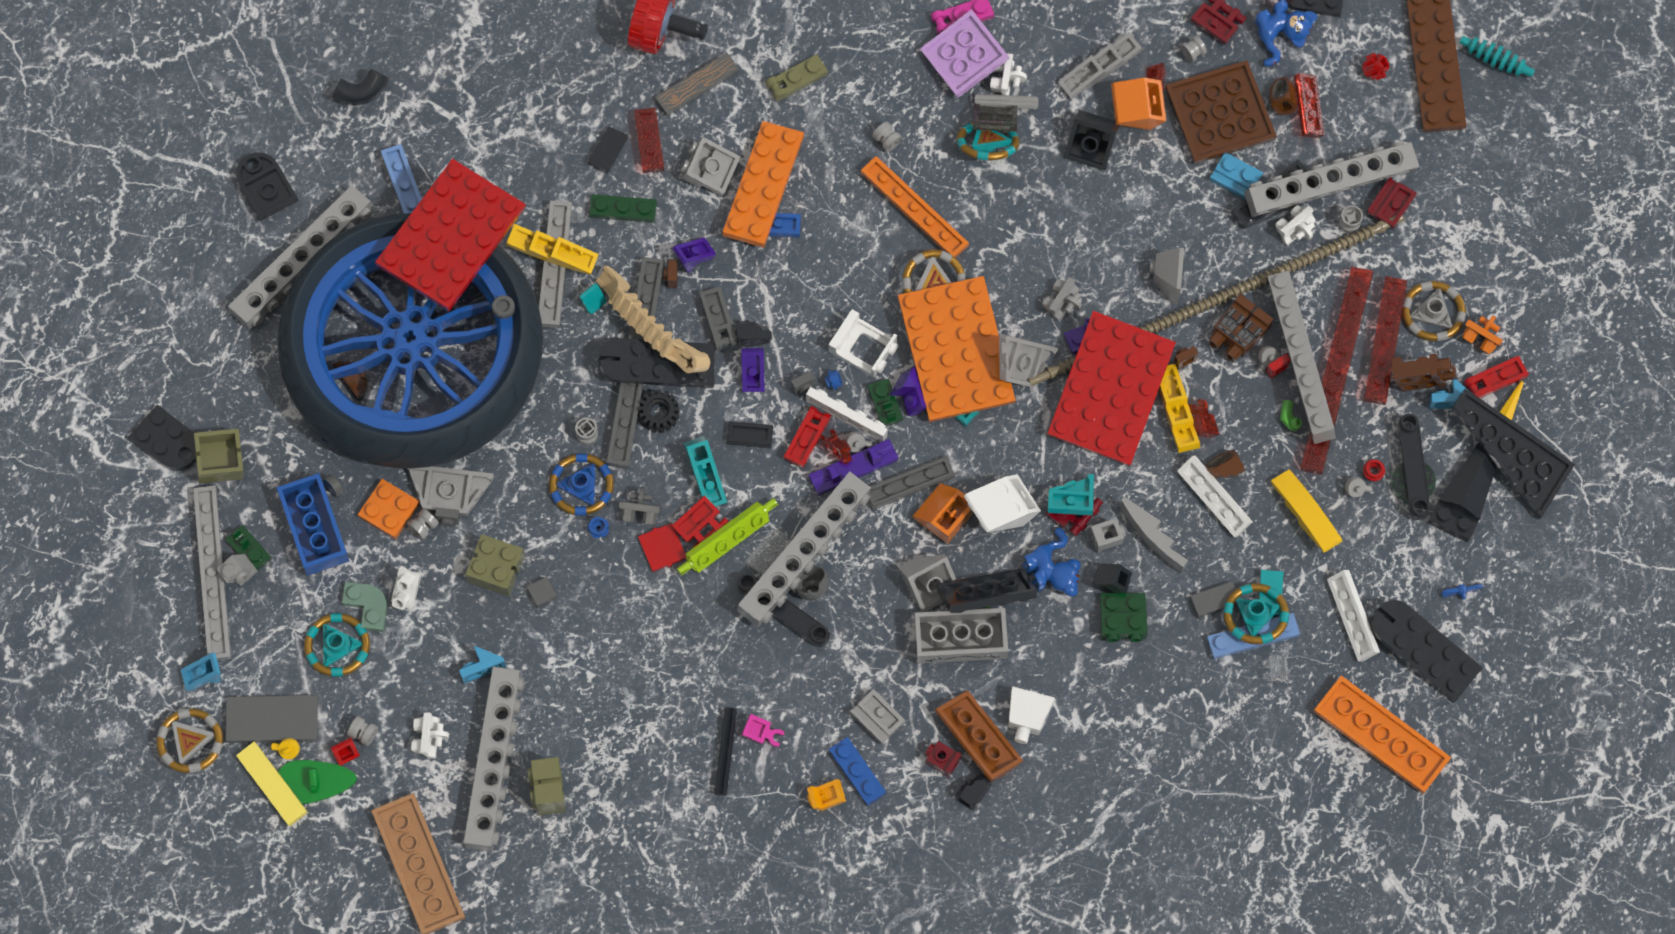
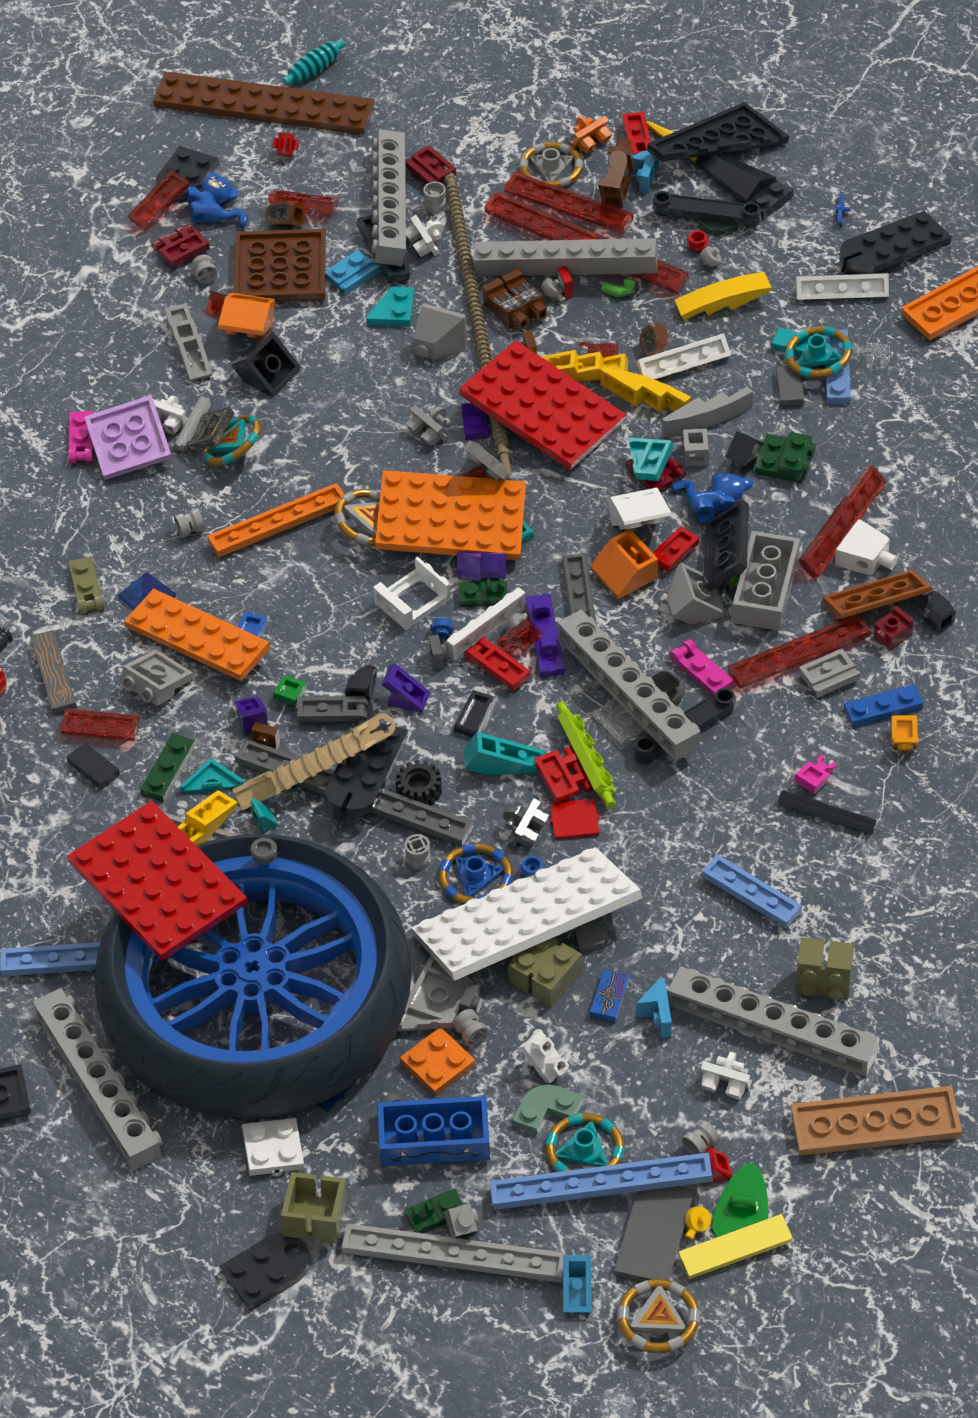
camera: 70 degrees left, 20 degrees down
(273, 409) = (272, 1147): none -> white plate
(301, 665) = (601, 1181): none -> medium blue plate
(488, 624) = (609, 995): none -> blue tile
(540, 534) = (525, 913): none -> white plate
(622, 246) = (211, 777): none -> teal tile
(622, 709) = (751, 891): none -> medium blue plate
(728, 277) = (289, 690): none -> green plate
(809, 124) = (138, 590): none -> clear blue piece
(853, 608) = (700, 668): none -> dark pink plate
(894, 684) = (799, 651): none -> clear red plate
(981, 549) = (676, 548): none -> red plate
(1057, 685) = (841, 521): none -> clear red plate
(1162, 468) = (639, 389): none -> yellow slope
(1202, 227) = (393, 308): none -> teal wing

